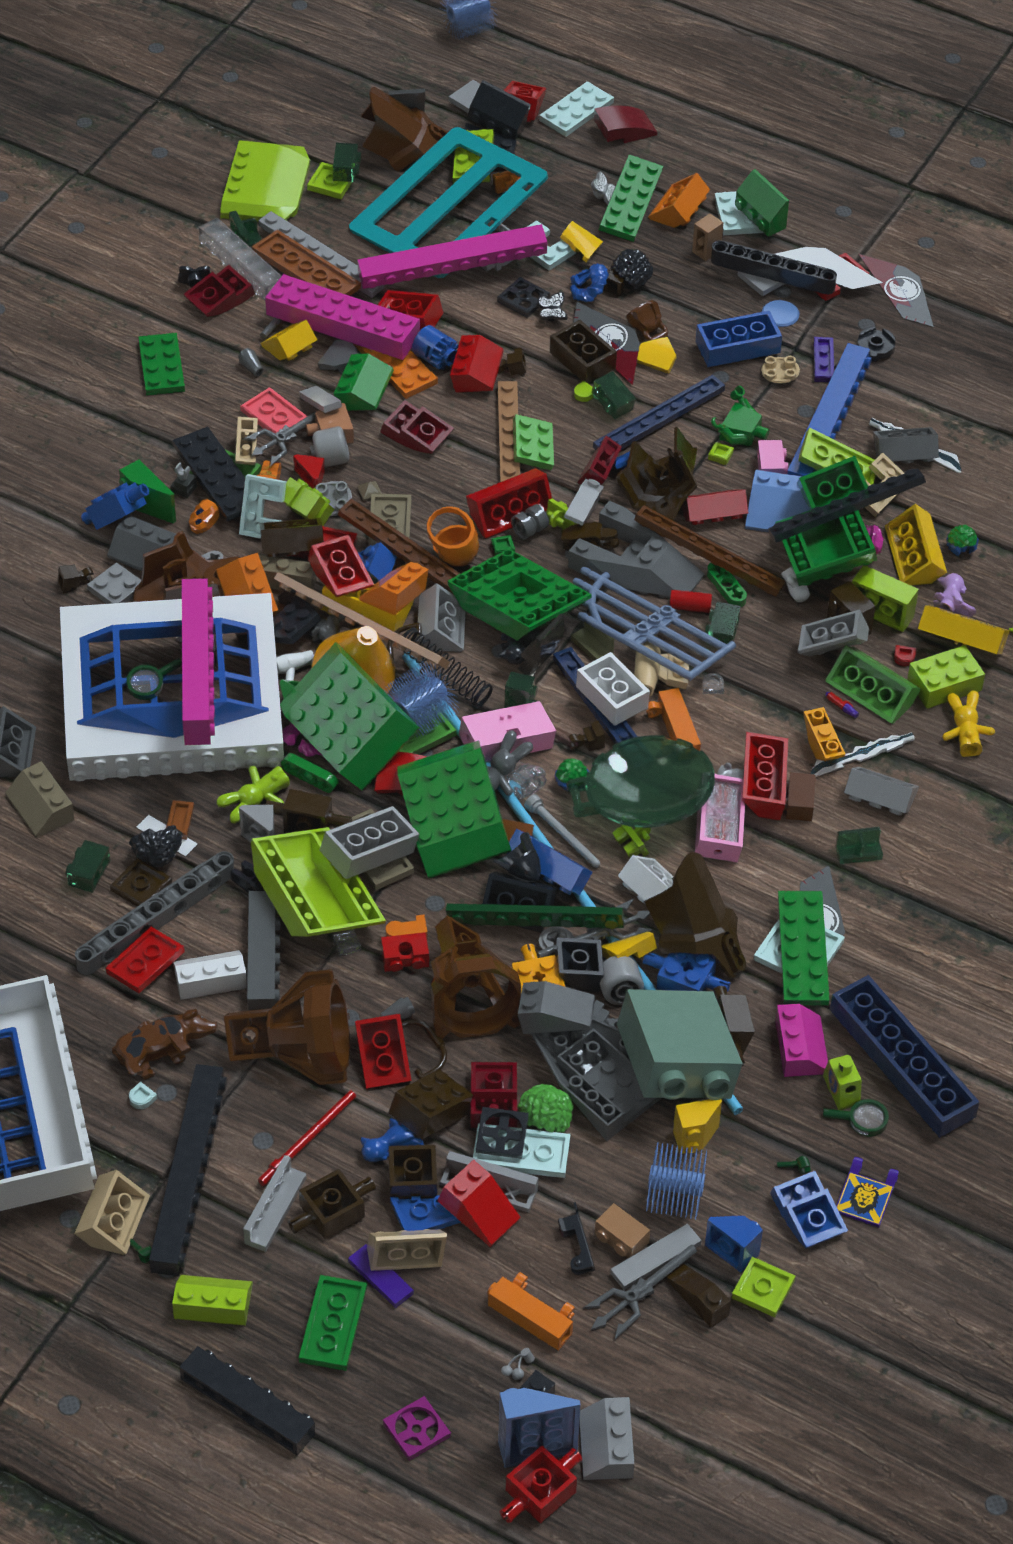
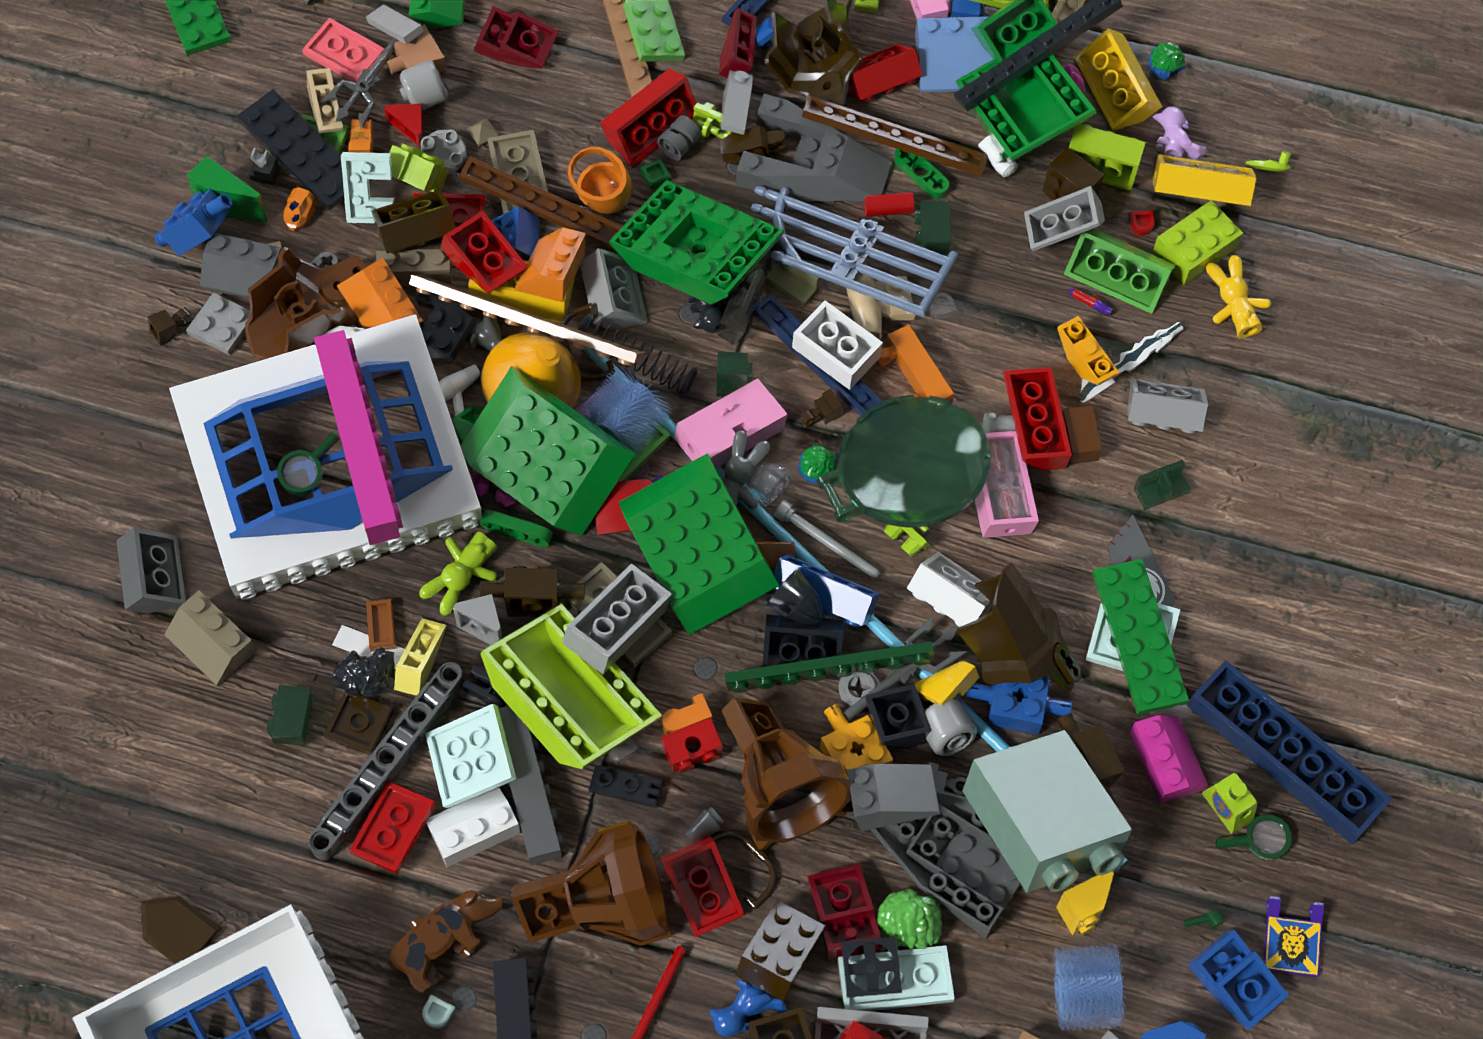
camera: 15 degrees left, 15 degrees up
(202, 846) = (418, 657): none -> light yellow slope
(222, 920) = (470, 756): none -> light aqua plate
(345, 971) = (625, 786): none -> black hinge

